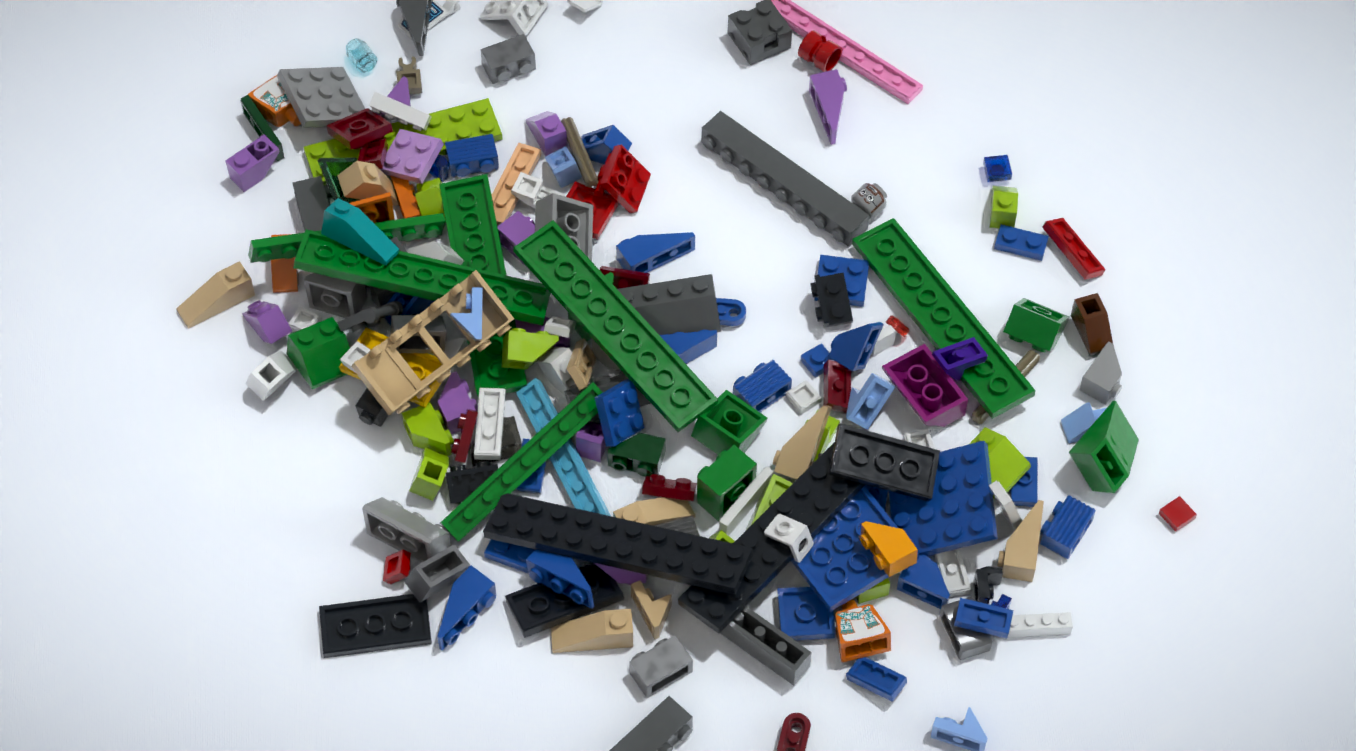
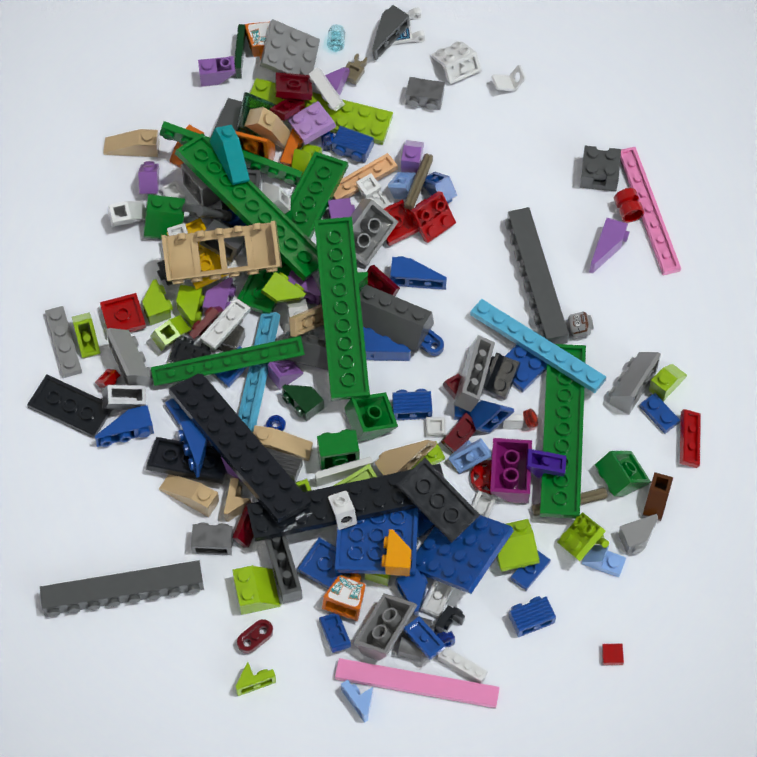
camera: 35 degrees right, 5 degrees up
(309, 559) = (63, 341): none -> light grey plate
(331, 533) = (86, 335): none -> lime slope
(355, 486) = (123, 313): none -> red plate
(388, 453) = (155, 305): none -> lime slope
(472, 321) = (253, 252): light blue slope -> none
(560, 326) = (312, 288): white tile -> none
(619, 413) = (306, 366): blue plate -> none
(627, 493) = (276, 419): none -> clear blue plate
(676, 489) = (303, 431): dark red plate -> none
(688, 628) = (243, 532): none -> dark red plate
(751, 690) = (255, 589): none -> lime slope
(792, 340) = (452, 384): none -> dark red plate
(805, 313) = (474, 373): none -> light grey brick
(845, 246) = (538, 346): none -> medium azure plate
(900, 414) = (484, 476): none -> red wheel
(932, 634) = (384, 626): none -> light grey slope
(973, 222) = (634, 381): none -> light grey slope
(997, 168) = (683, 354): clear blue plate -> none
(1004, 675) = (417, 683): none -> bright pink tile
(1006, 504) = (496, 577): white tile -> none
(1021, 549) = (492, 610): tan slope -> none
(1055, 411) = (582, 536): none -> lime plate
(1106, 451) = (597, 583): green slope -> none

